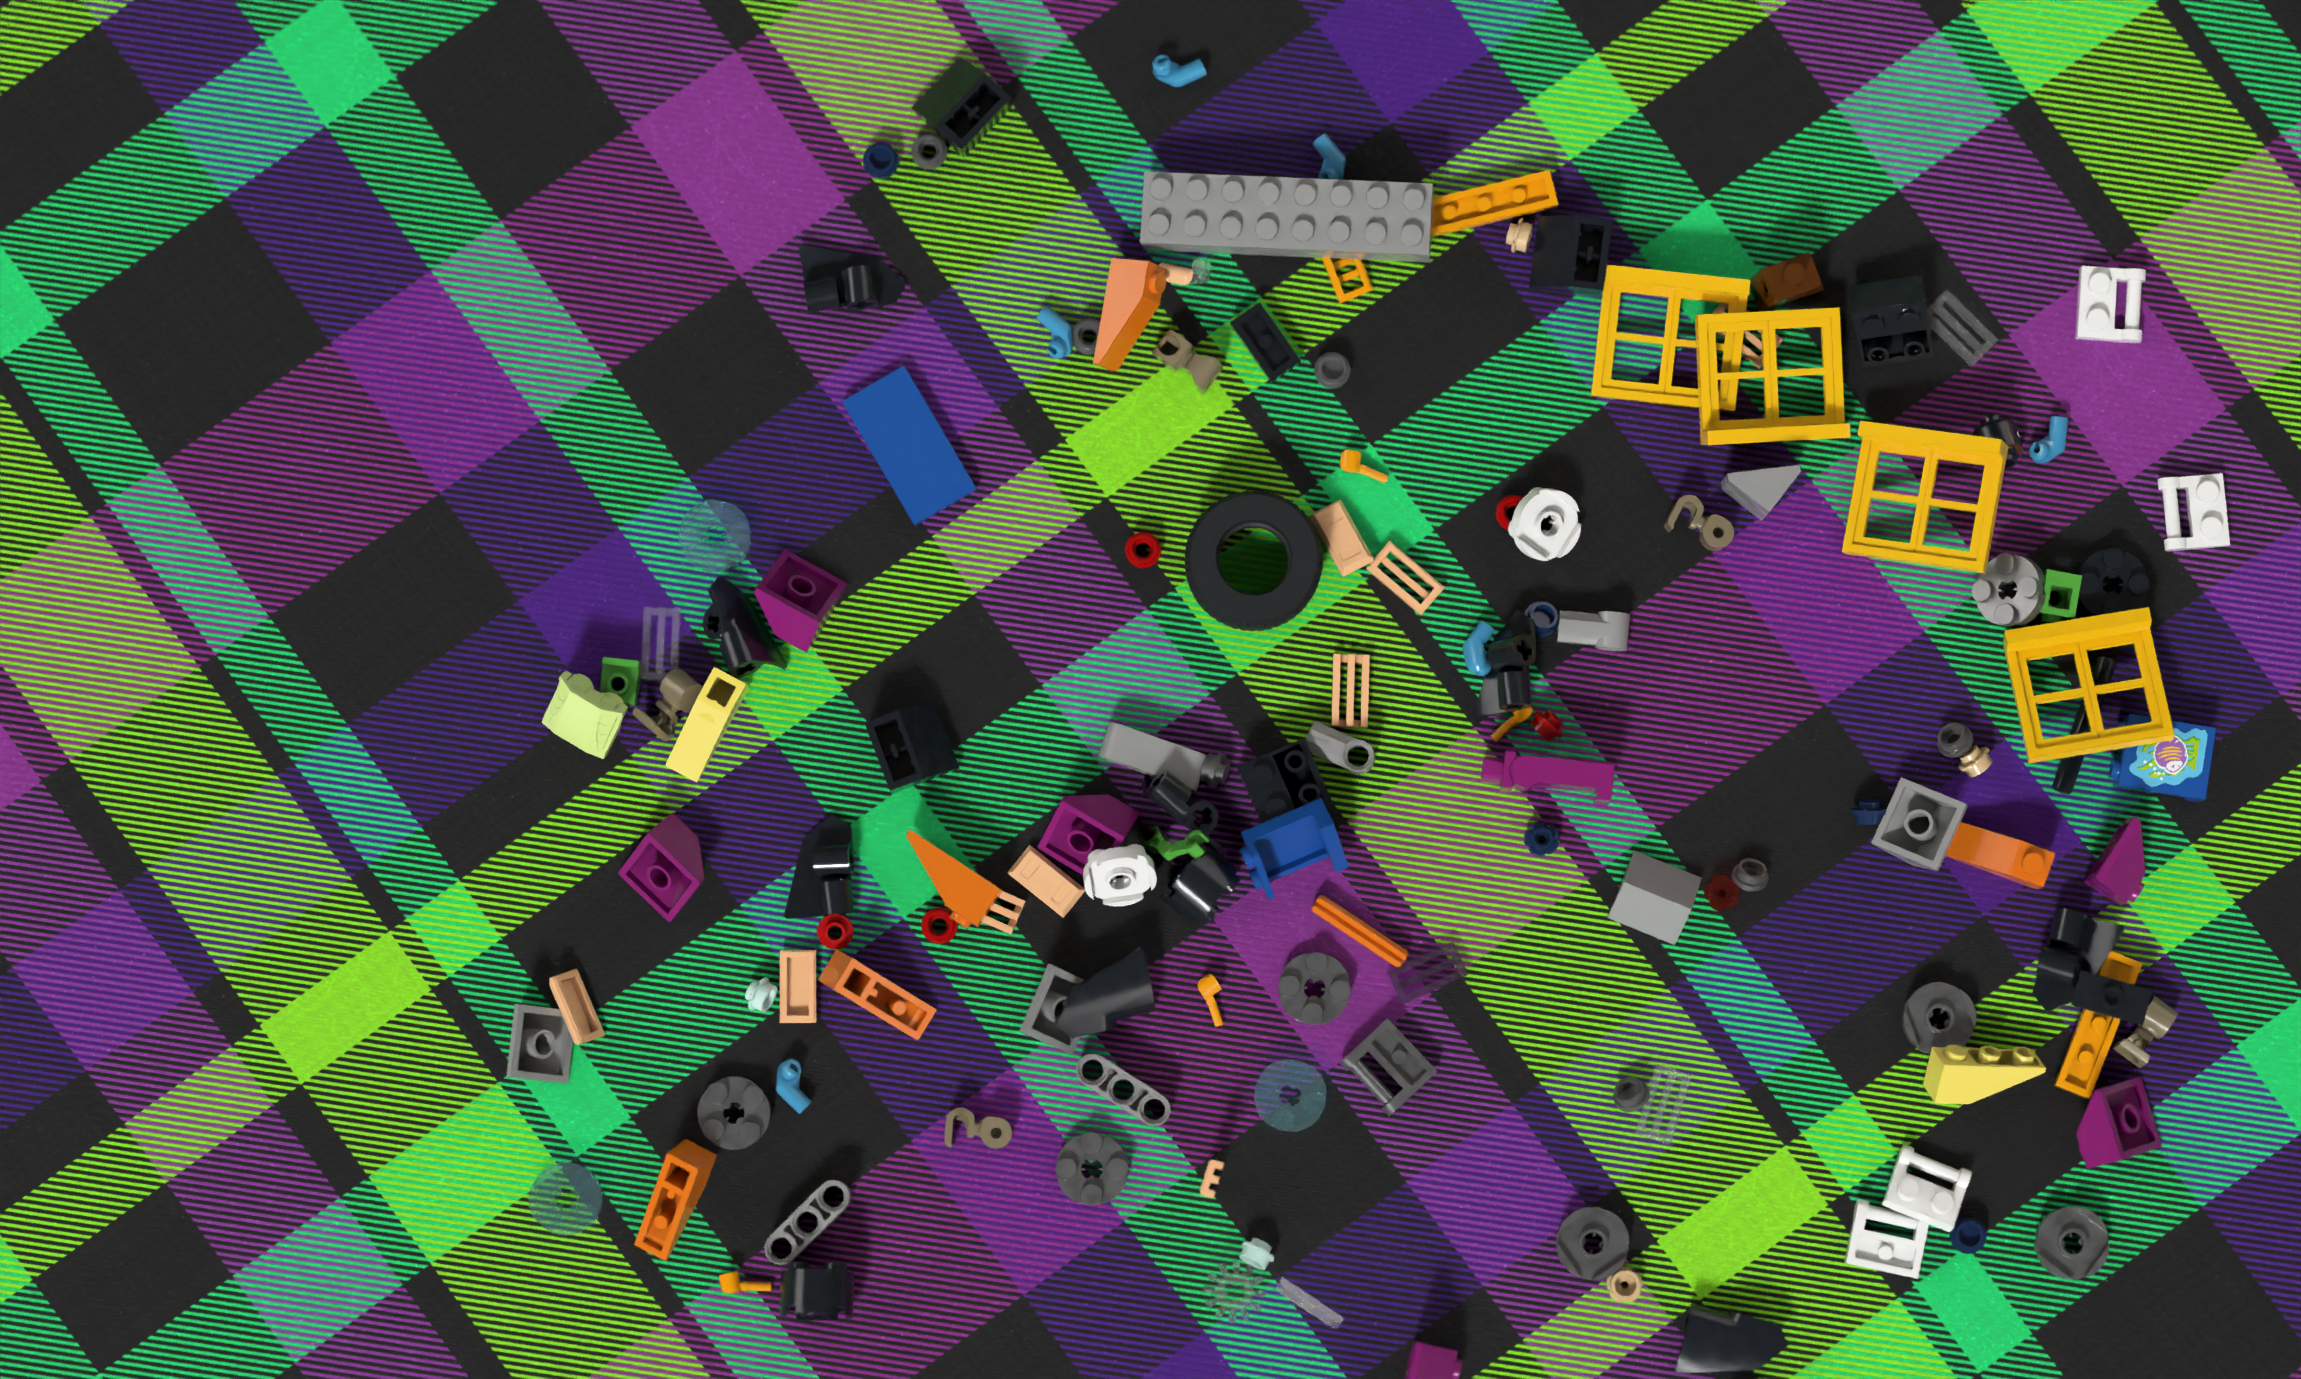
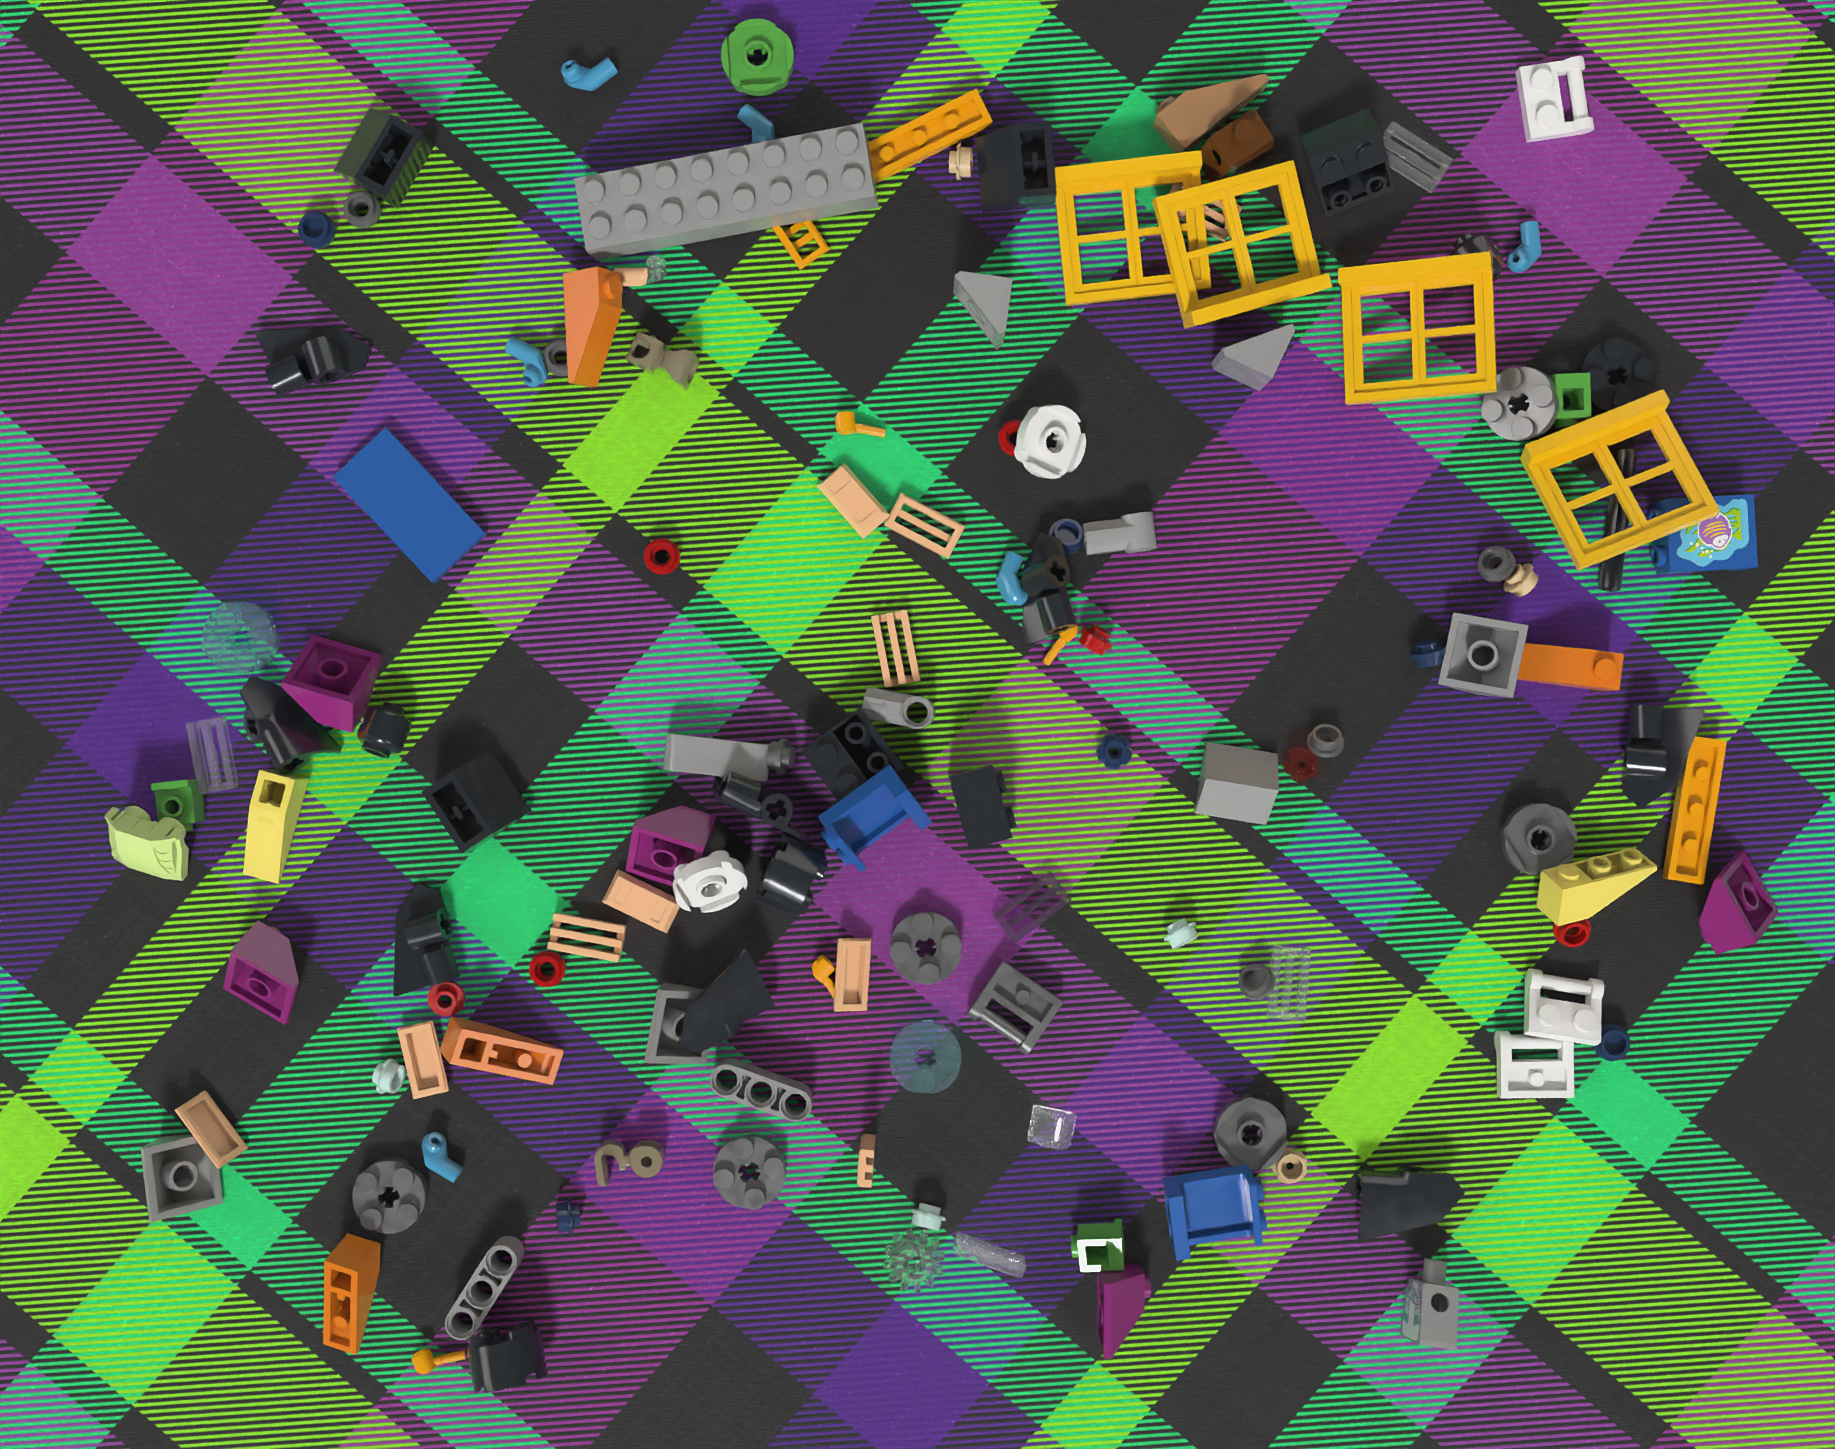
camera: 15 degrees left, 5 degrees up
(550, 1184) = (257, 1298): clear light blue plate -> none
(679, 694) = (235, 800): dark tan leg -> none
(836, 657) = (384, 730): none -> black head
(903, 1172) = (567, 1217): none -> dark blue plate
(959, 887) = (552, 929): orange slope -> none
(1161, 845) = (743, 841): bright green piece -> none
(1236, 997) = (852, 974): none -> light nougat tile
(1259, 511) = (753, 495): black tyre -> none
(1265, 342) = (735, 324): black plate -> none
(1331, 77) = (740, 45): none -> bright green plate
(1332, 370) = (807, 337): flat silver plate -> none
(1360, 931) = (957, 881): orange axle -> none
(1398, 1194) = (1051, 1127): none -> clear slope
(1399, 859) = (981, 806): none -> black brick
(1425, 1330) = (1099, 1246): none -> bright green brick
(1513, 376) = (986, 301): none -> light grey slope
(1539, 1306) = (1213, 1207): none -> blue panel
(1549, 773) = (1089, 690): magenta hips -> none
(1567, 1031) = (1180, 933): none -> light aqua plate
(1714, 530) = (1216, 411): dark tan leg -> none
(1762, 240) = (1201, 111): none -> medium nougat slope
(1955, 1122) = (1573, 933): none -> red plate
(2050, 1244) = (1693, 1033): flat silver plate -> none
(2111, 997) = (1707, 782): black plate -> none
(2120, 865) = (1685, 647): magenta slope -> none
(2156, 1024) = (1746, 793): dark tan leg -> none
(2205, 512) = (1690, 283): white plate -> none

